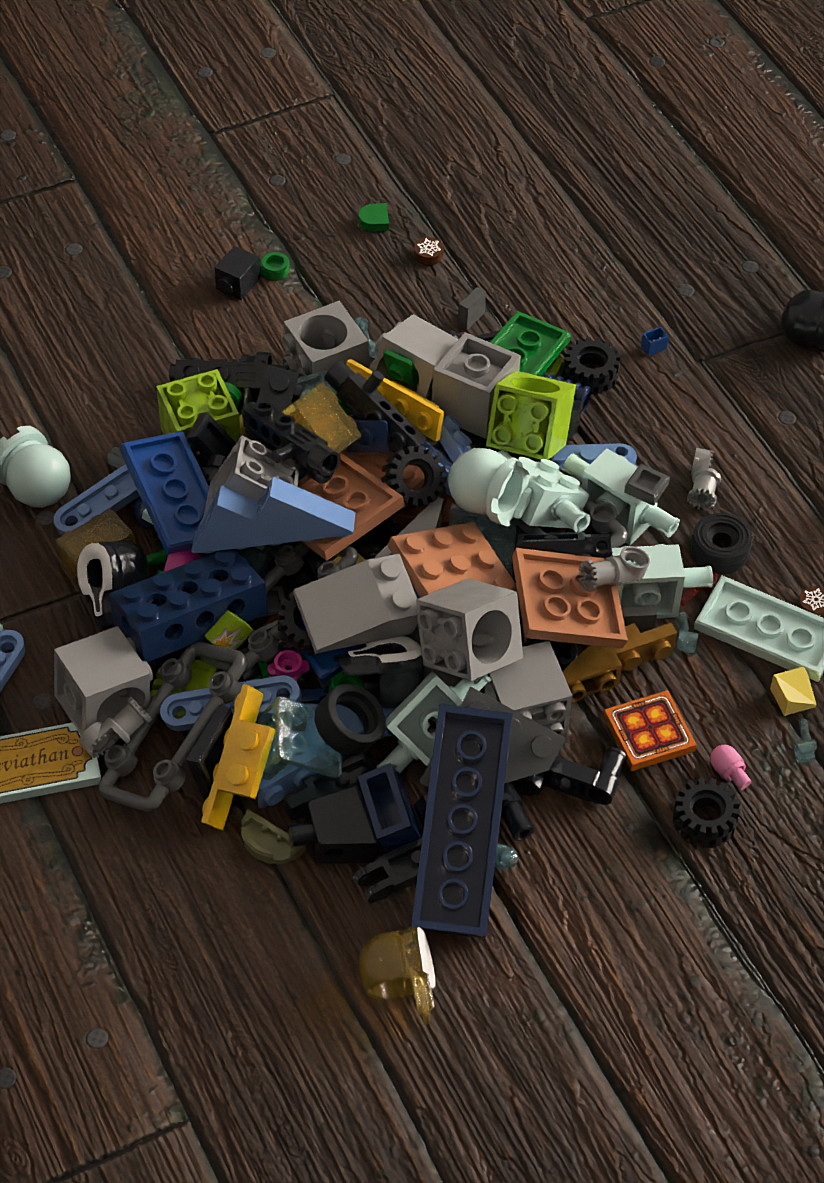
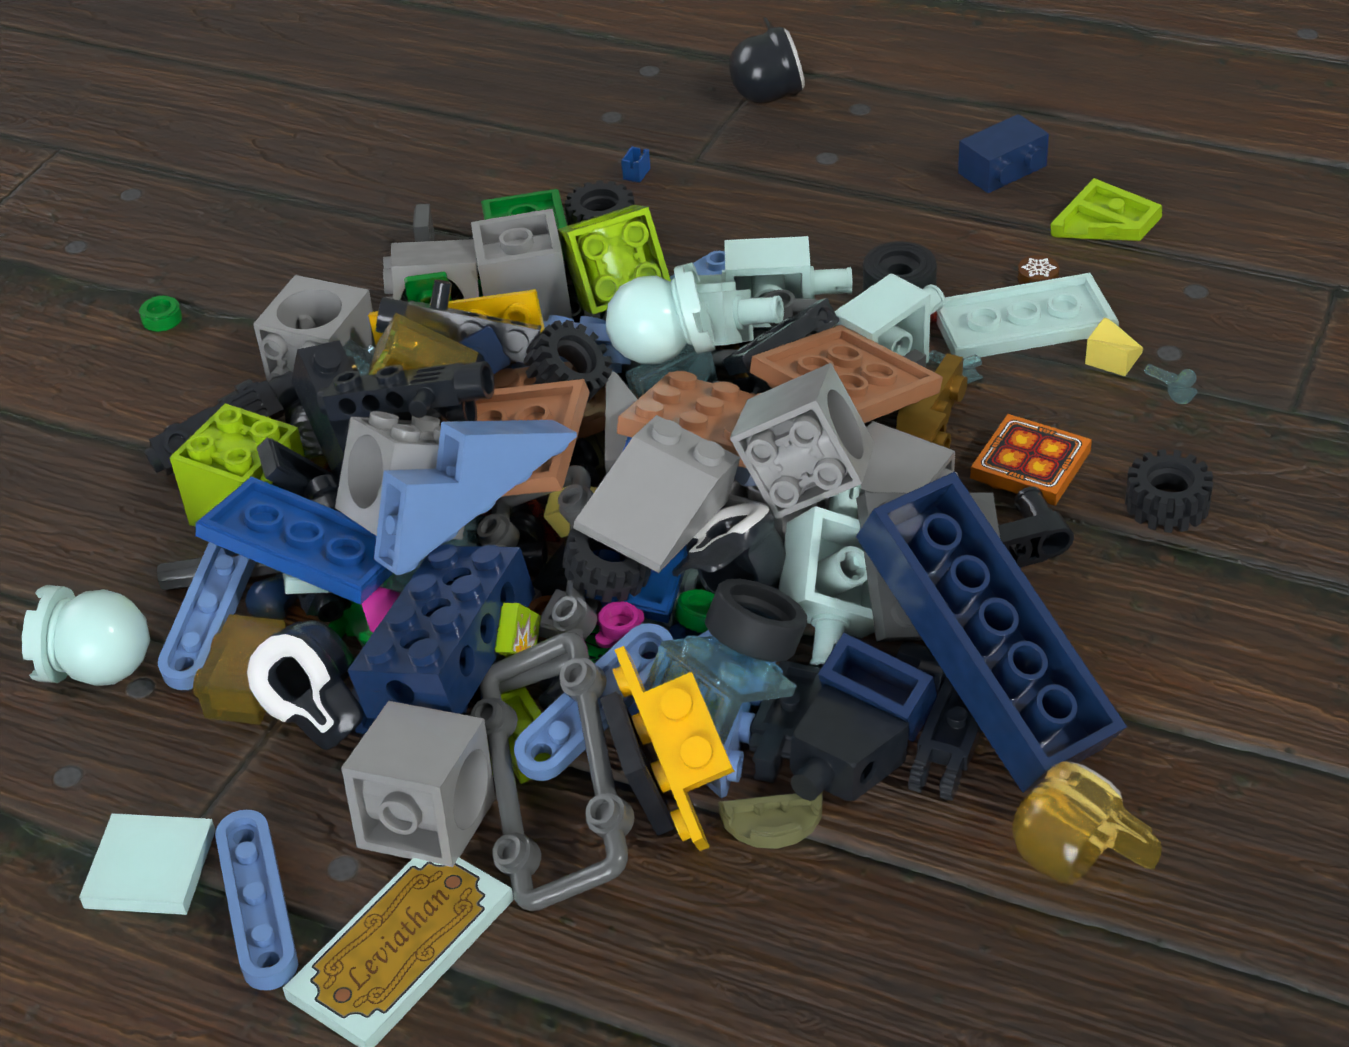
camera: 35 degrees left, 10 degrees down
(103, 735) = (489, 813): light grey connector -> none
(237, 272) = (127, 336): black brick -> none
(374, 217) = (227, 219): green tile -> none
(428, 250) = (318, 215): reddish brown tile -> none
(614, 569) = (865, 321): light grey connector -> none
(646, 484) = (803, 242): dark grey tile -> none
(704, 480) = (822, 236): light grey connector -> none
(730, 765) = (1135, 439): bright pink cylinder -> none

